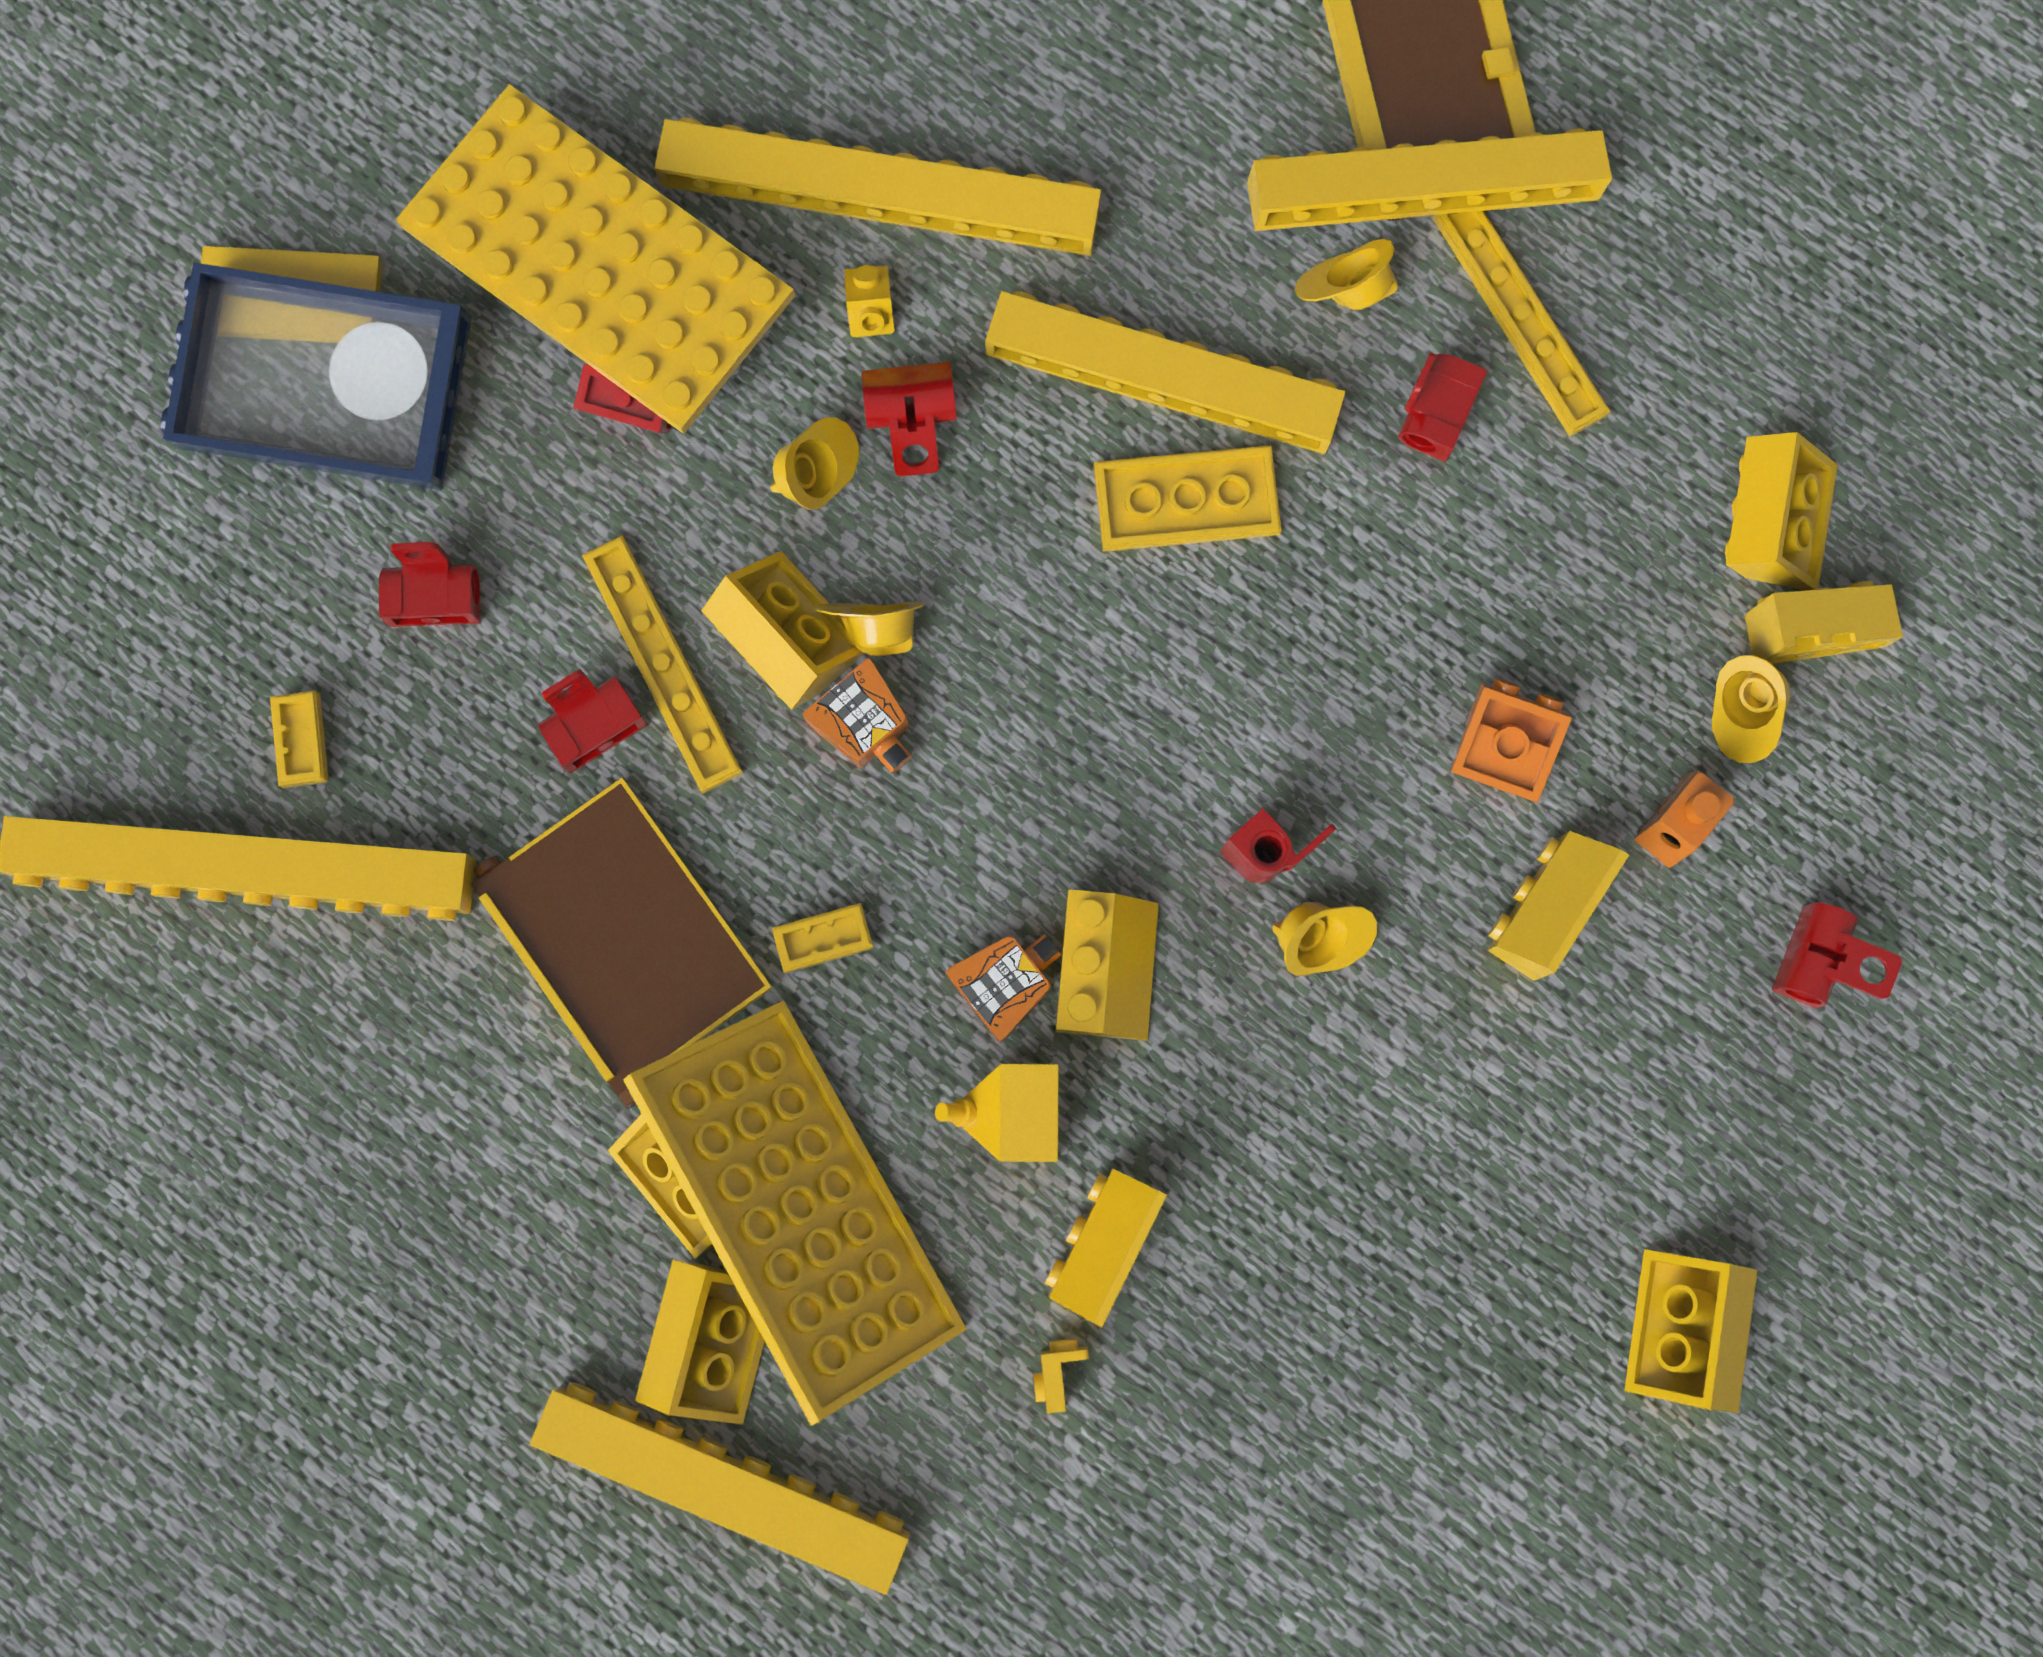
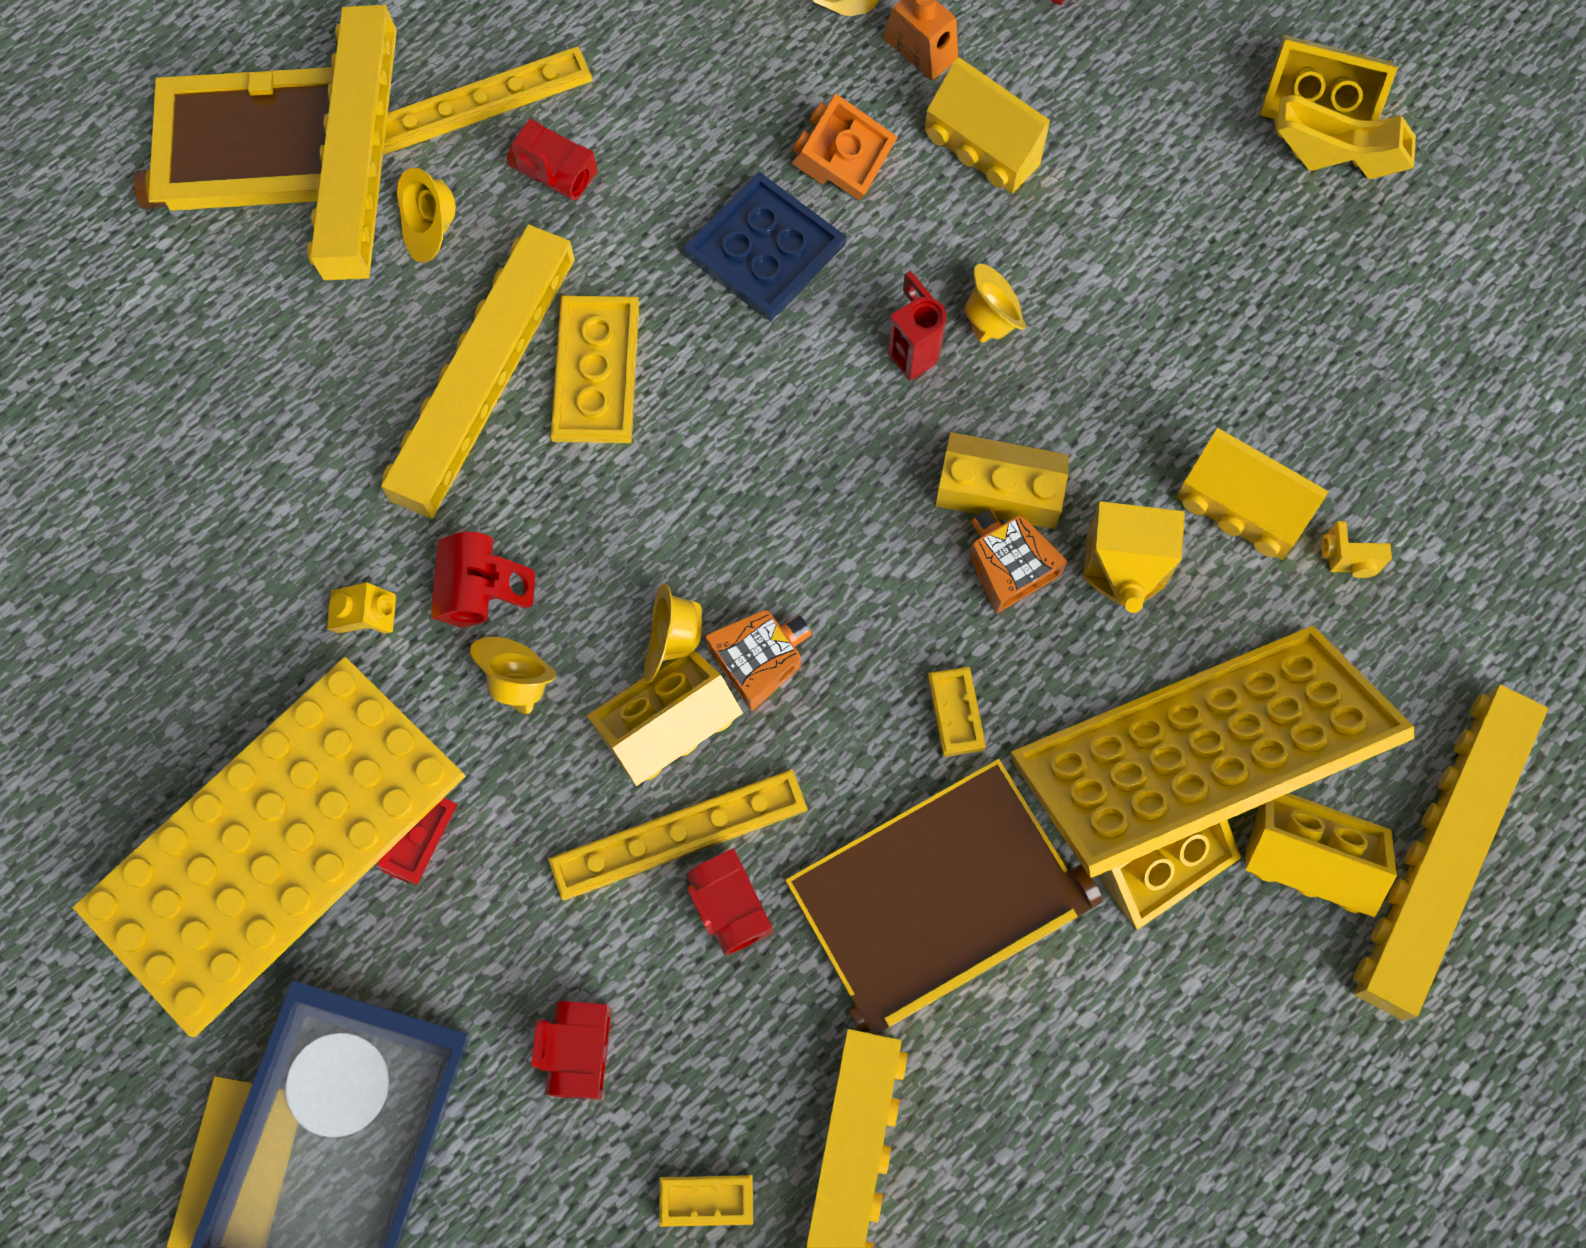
camera: 80 degrees left, 10 degrees down
(878, 186) = (251, 594): yellow brick -> none
(1367, 664) = (764, 246): none -> dark blue plate
(1608, 1337) = (1329, 138): none -> yellow arch

